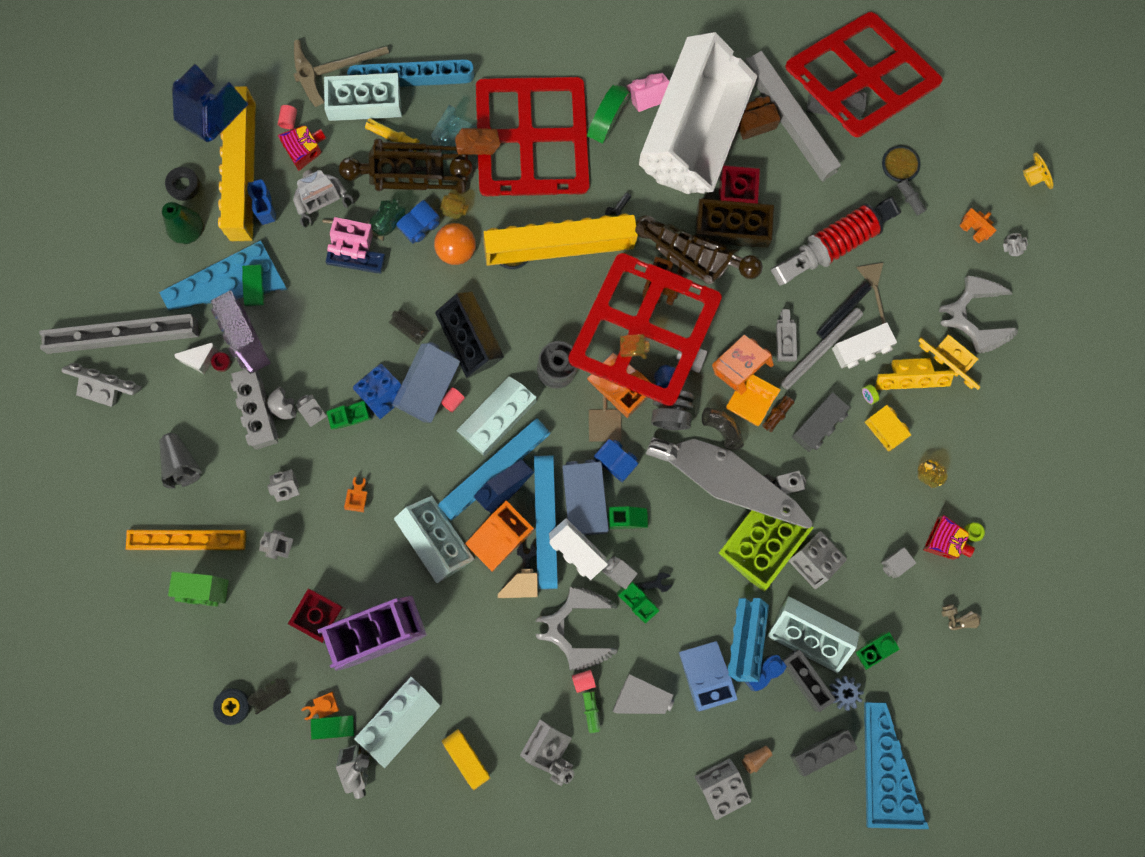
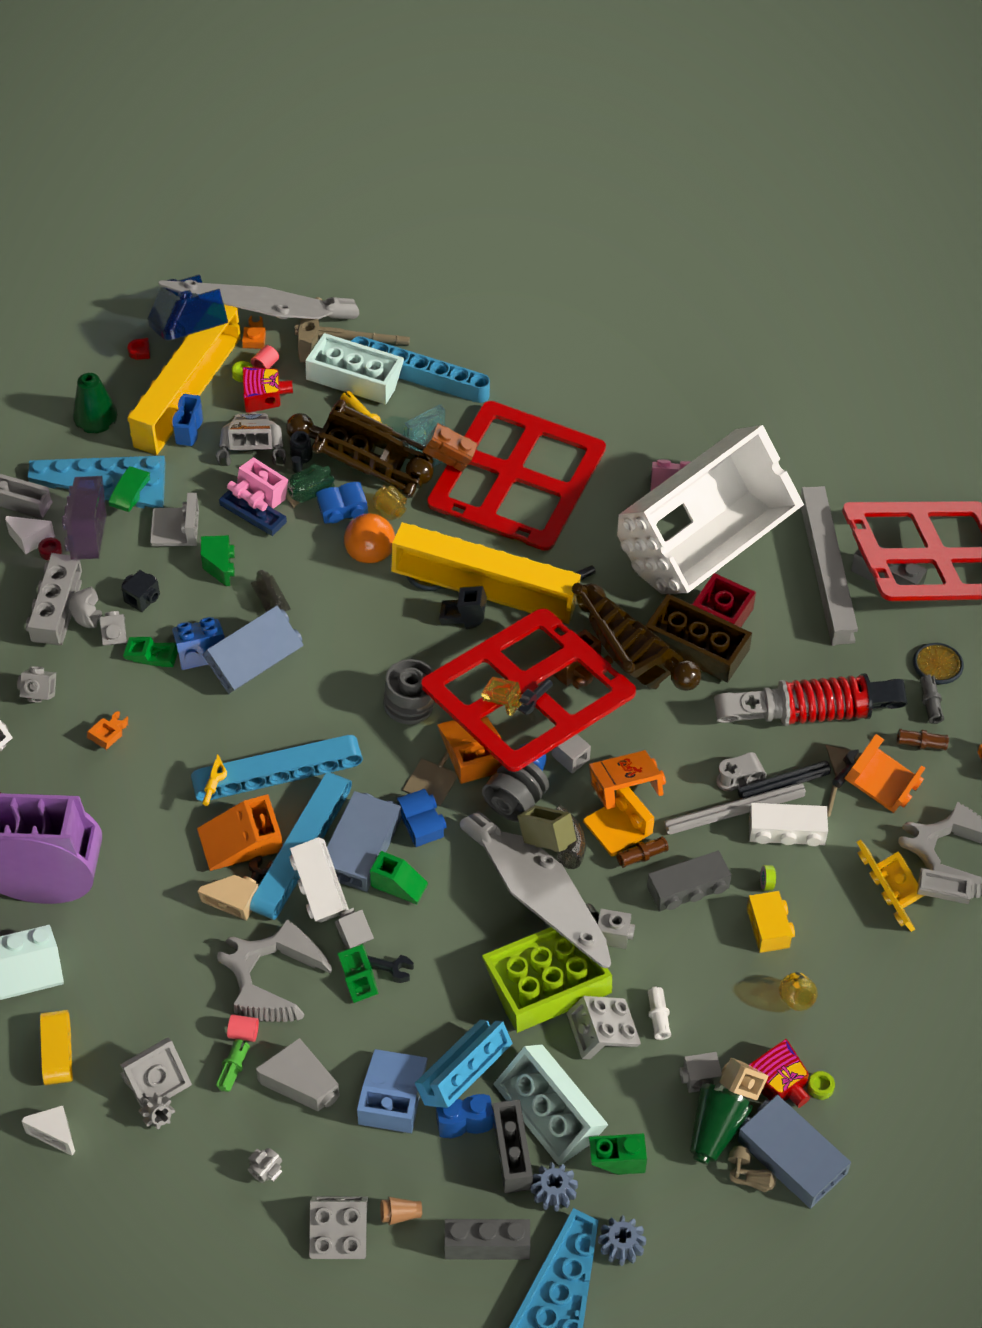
camera: 30 degrees right, 25 degrees down
(182, 149) = (139, 349): none -> red tile
(190, 191) = (119, 366): black tyre -> none
(260, 66) = (272, 301): none -> light grey wing
(265, 96) = (254, 335): none -> orange plate
(272, 134) = (237, 370): none -> lime tile
(304, 298) = (176, 525): none -> light grey bracket
(312, 367) = (140, 590): none -> black brick
(352, 314) = (217, 556): none -> green slope
(361, 190) = (300, 450): none -> black piece
(433, 538) = (165, 807): light aqua slope -> none
(452, 399) = (272, 681): coral beam -> none
(459, 505) = (214, 778): none -> yellow hand
(469, 334) = (331, 627): black slope -> none
(497, 415) = (314, 720): light aqua slope -> none
(499, 819) = (50, 1127): none -> white slope
(503, 486) = (276, 782): dark blue slope -> none
(559, 275) = (466, 610): none -> black brick
(607, 113) = (611, 477): green arch -> none
(654, 774) = (265, 1165): none -> light grey gear
(656, 335) = (530, 697): none -> black bar
(712, 433) = (547, 828): none -> olive brick
(758, 120) = (785, 551): reddish brown brick -> none
(786, 338) = (696, 779): light grey hinge -> none
(814, 318) = (741, 771): none -> light grey piece
(848, 531) = (659, 1013): none -> white axle
(879, 272) = (849, 761): none -> black bar
(900, 705) = (616, 1249): none -> sand blue gear
(910, 277) = (883, 777): none -> orange panel
(913, 374) = (832, 881): yellow bracket -> none
(920, 234) = (922, 739): none -> reddish brown pin
(926, 597) = (716, 1121): none -> dark green cone
(933, 563) = (743, 1079): none -> tan slope
(981, 590) = (793, 1150): none -> sand blue brick
(991, 348) = (944, 886): none -> light grey tile

